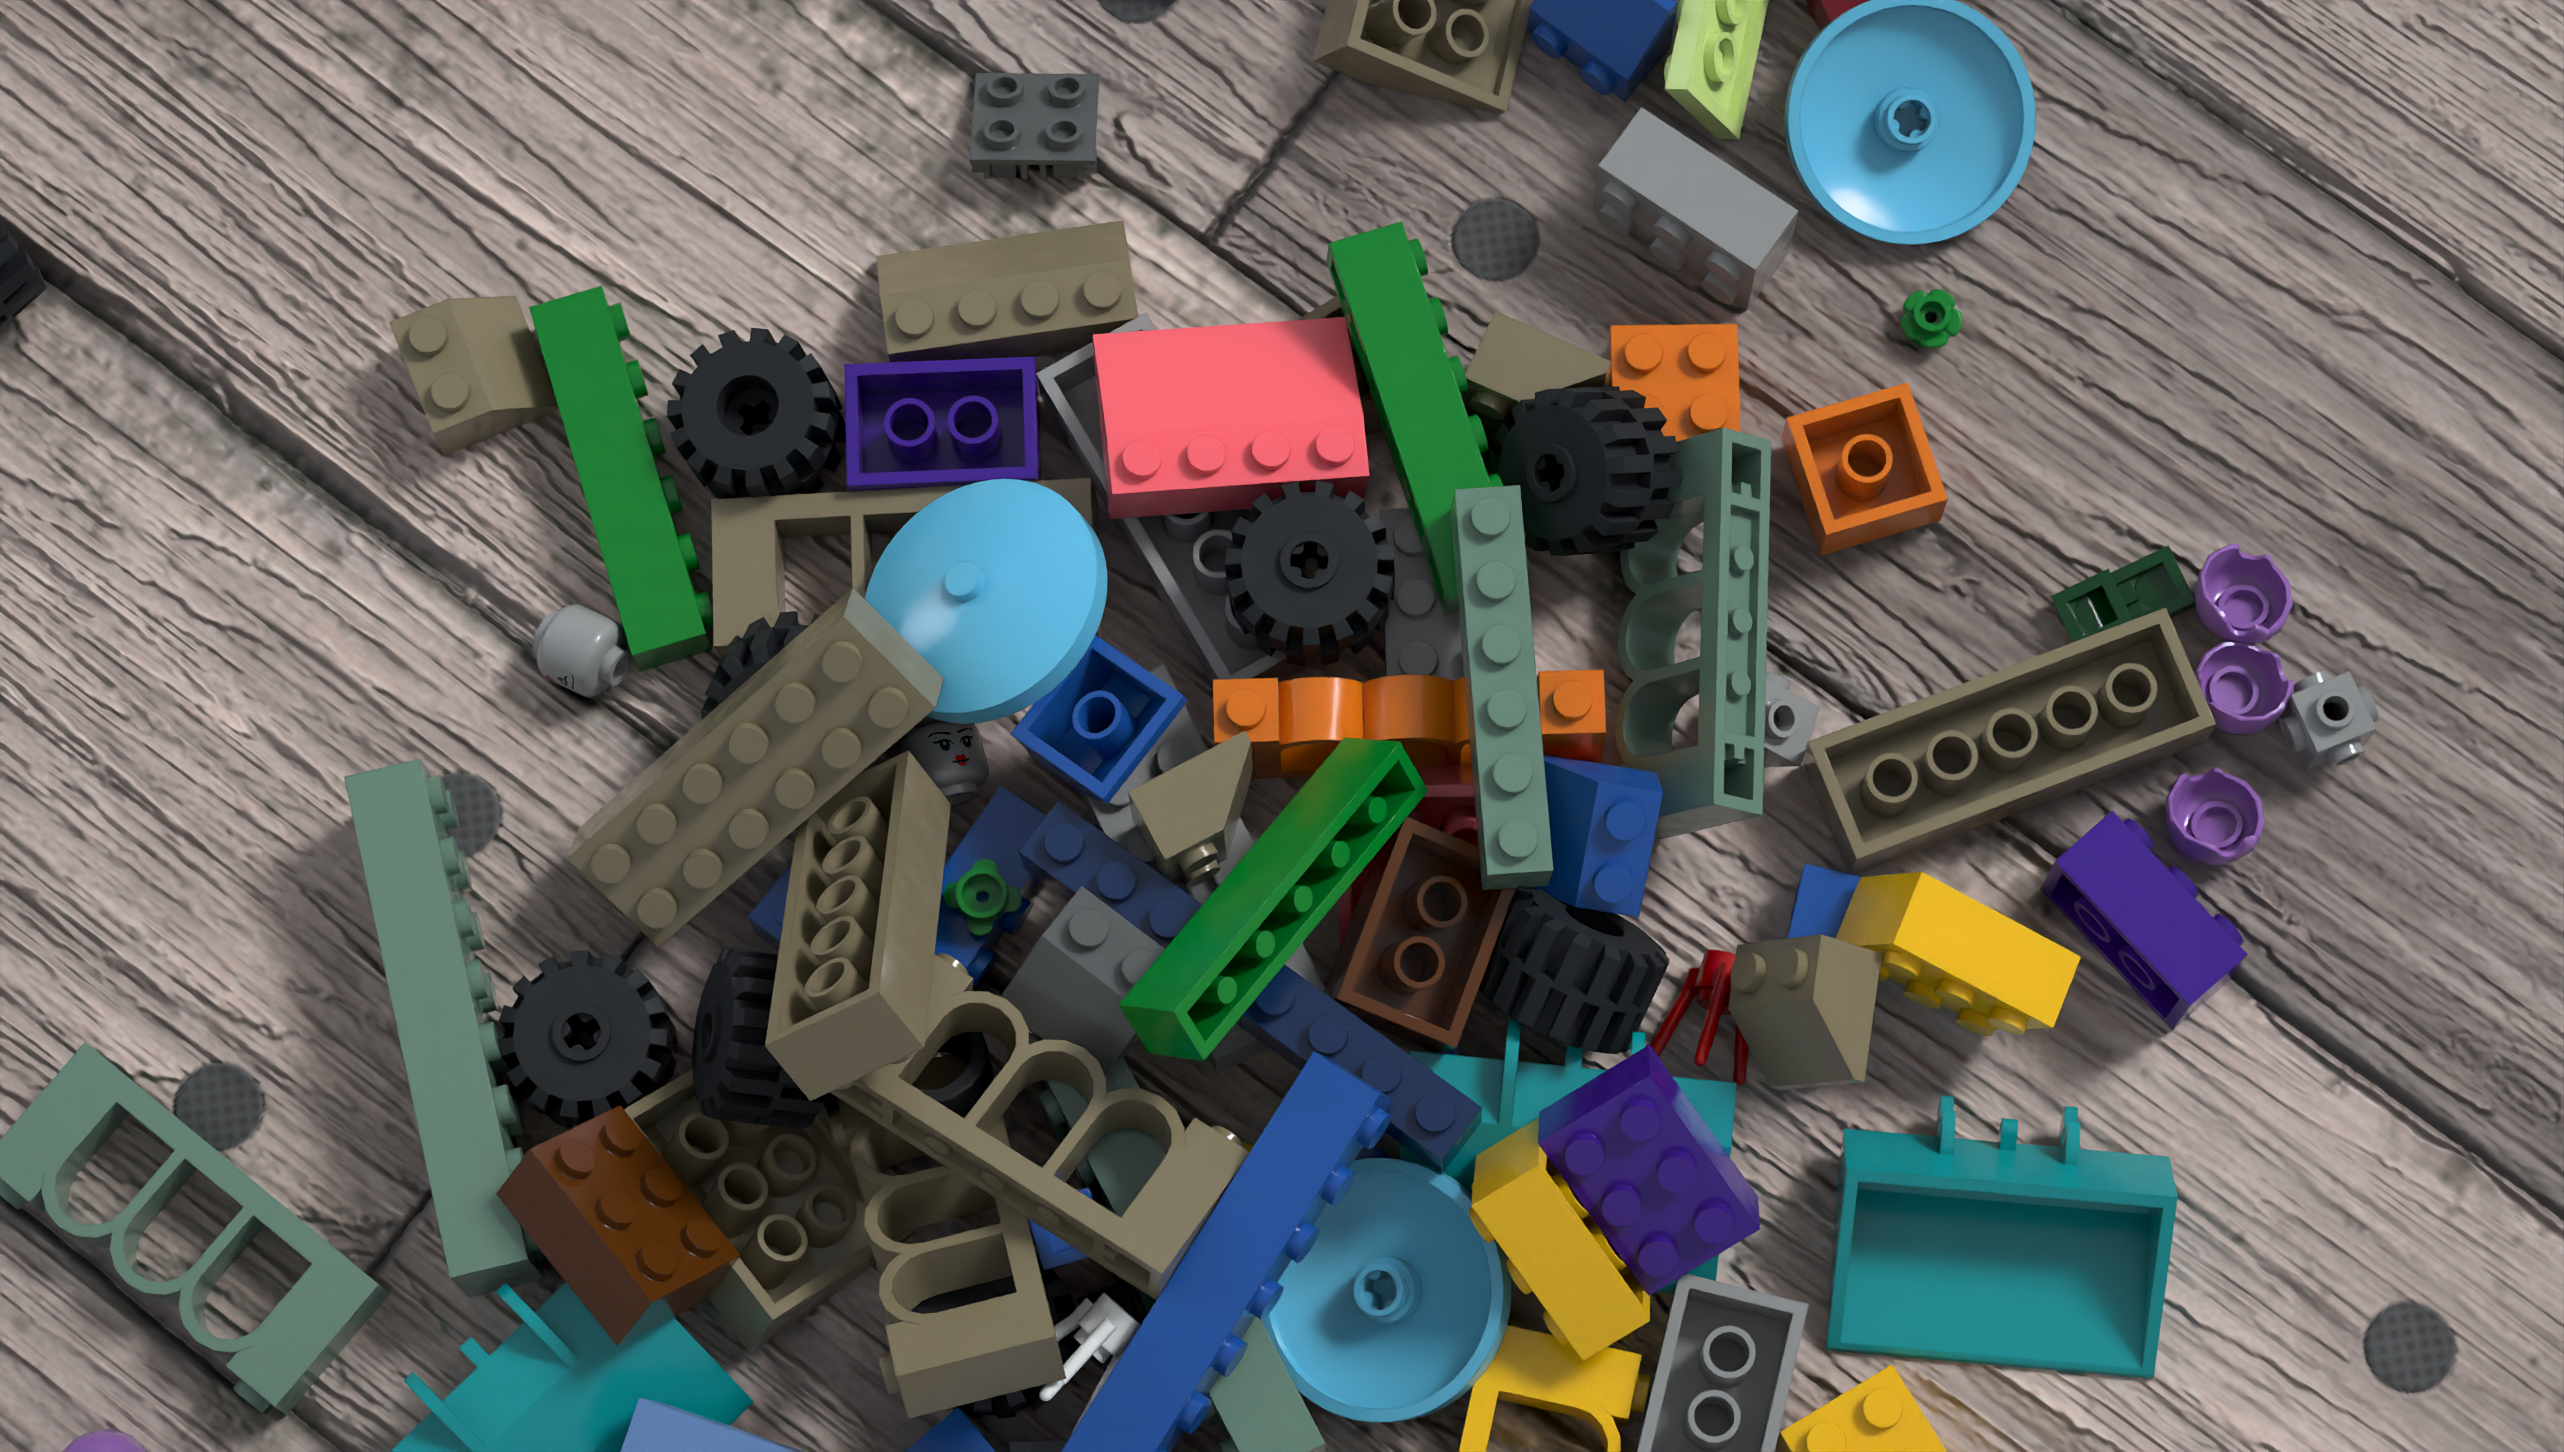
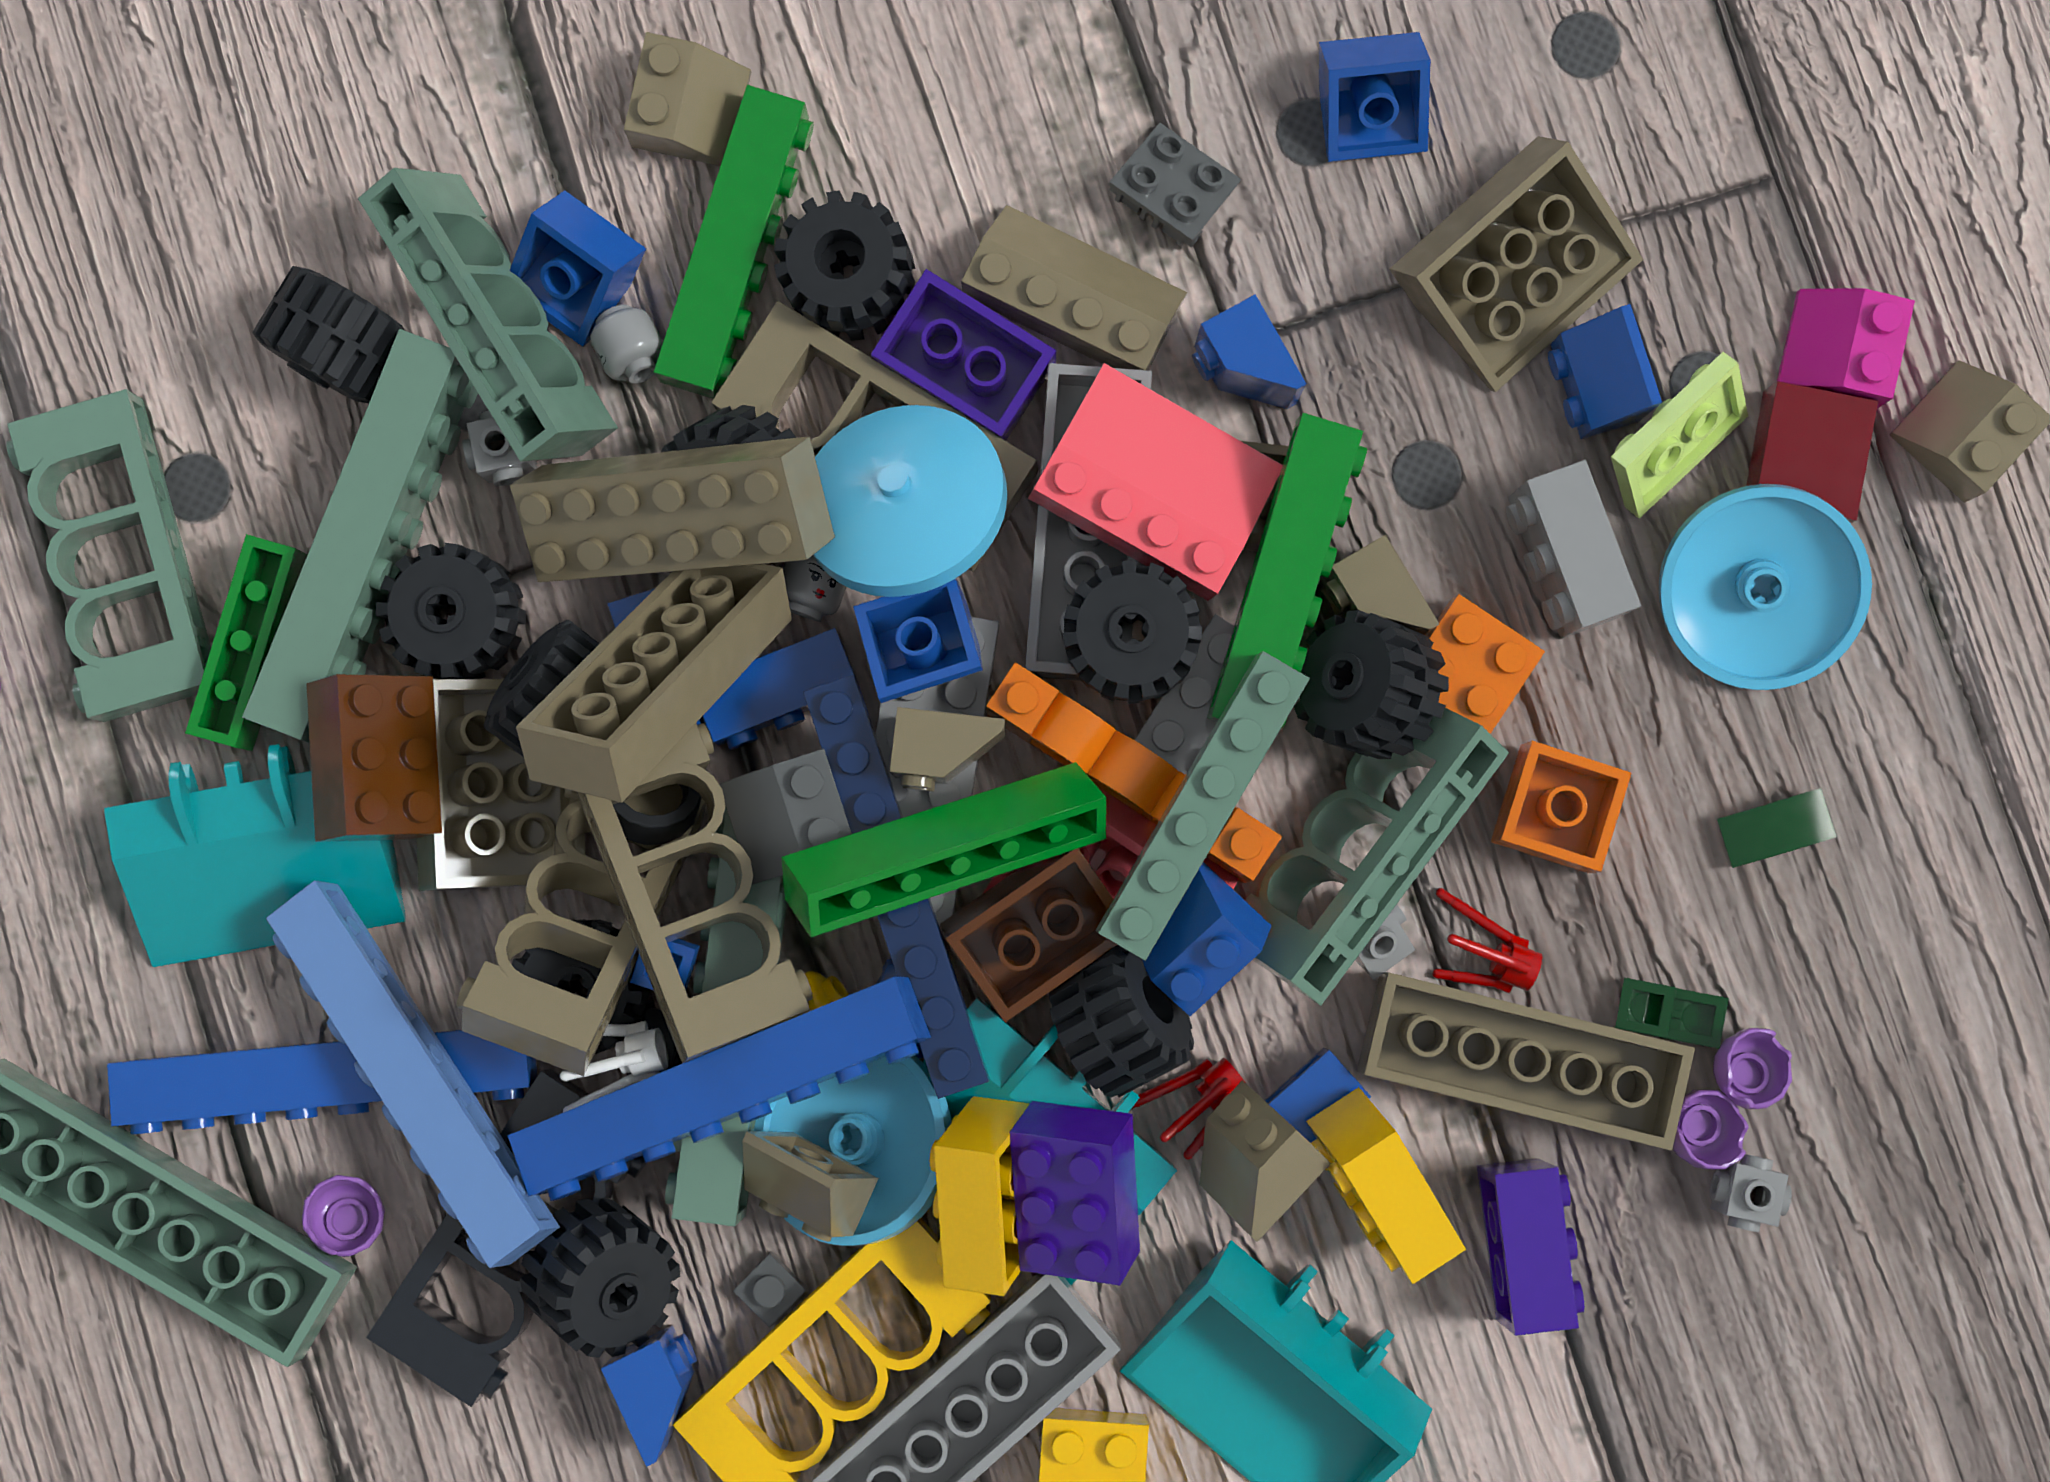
camera: 30 degrees right, 10 degrees up
(269, 839) = (328, 333): none -> black wheel
(394, 1217) = (244, 635): none -> green brick
(421, 709) = (487, 314): none -> sand green fence
(469, 612) = (575, 264): none -> blue slope
(536, 857) = (498, 466): none -> light grey brick
(982, 878) = (758, 687): green plate -> none
(1233, 237) = (1247, 356): none -> blue slope
(1366, 1355) = (806, 1183): none -> dark tan slope
(1924, 654) = (1511, 963): none -> red plant
(1930, 334) = (1666, 731): green plate -> none
(2095, 346) = (1777, 827): none -> dark green slope
(2213, 817) = (1626, 1204): medium lavender hair -> none

